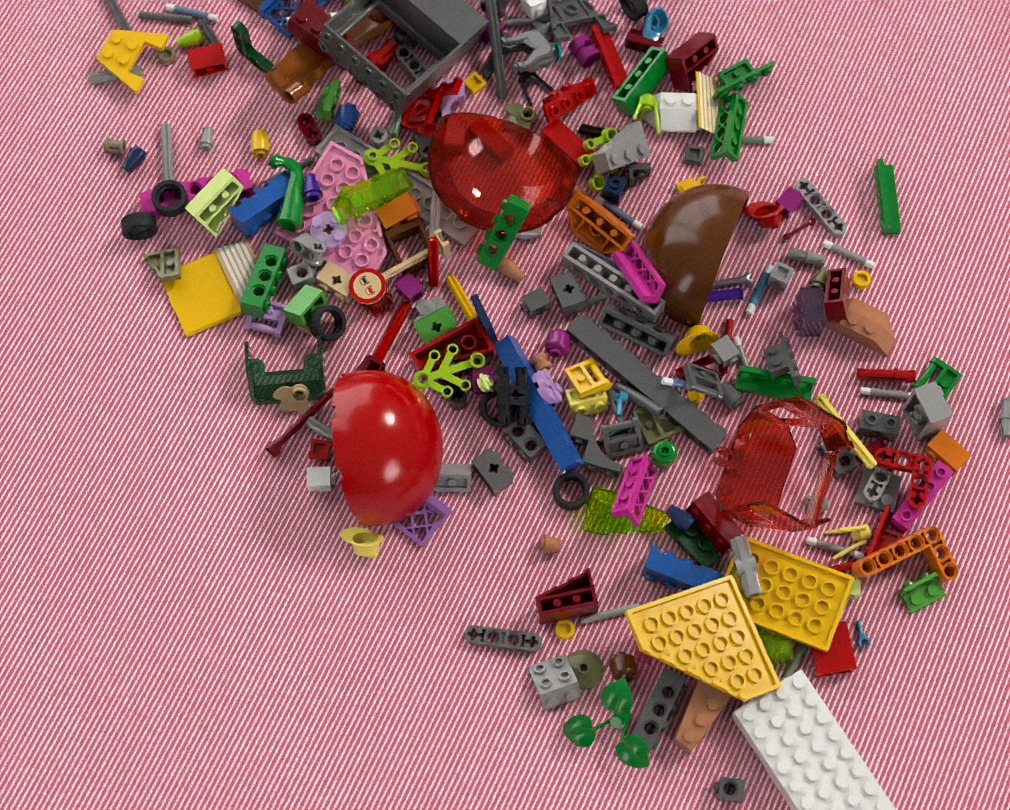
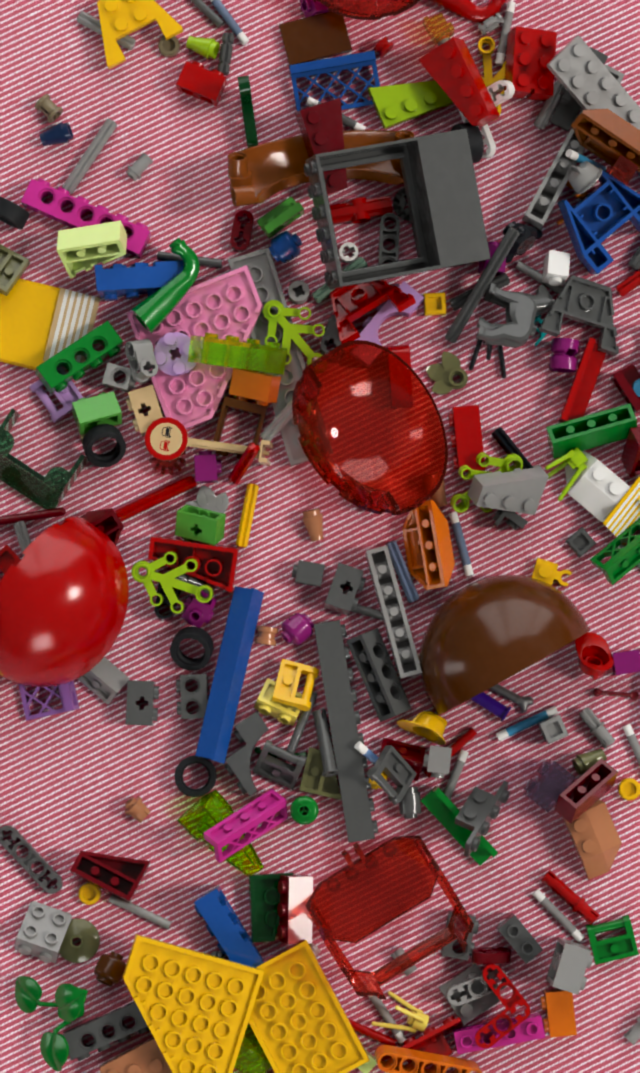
camera: 40 degrees right, 15 degrees up
(164, 186) = (53, 192): black tyre -> none
(259, 143) = (183, 211): yellow brick -> none
(291, 400) = (19, 493): tan plate -> none
(311, 188) = (190, 300): dark purple cone -> none
(484, 319) = (243, 559): dark blue tile -> none
(485, 383) = (194, 621): yellowish green plate -> none
(491, 256) = (327, 488): green brick -> none
(519, 390) = (205, 643): black pin -> none
(547, 388) = (251, 666): lavender plate -> none
(567, 98) = (504, 392): red bracket -> none
(614, 189) = (474, 520): dark blue brick -> none
(620, 398) = (307, 727): dark azure hand -> none
(639, 277) = (417, 627): dark pink fence -> none
(679, 517) = (266, 880): dark blue cone -> none
(745, 566) = (282, 974): light grey piece -> none
(859, 448) = (481, 922): light yellow axle -> none

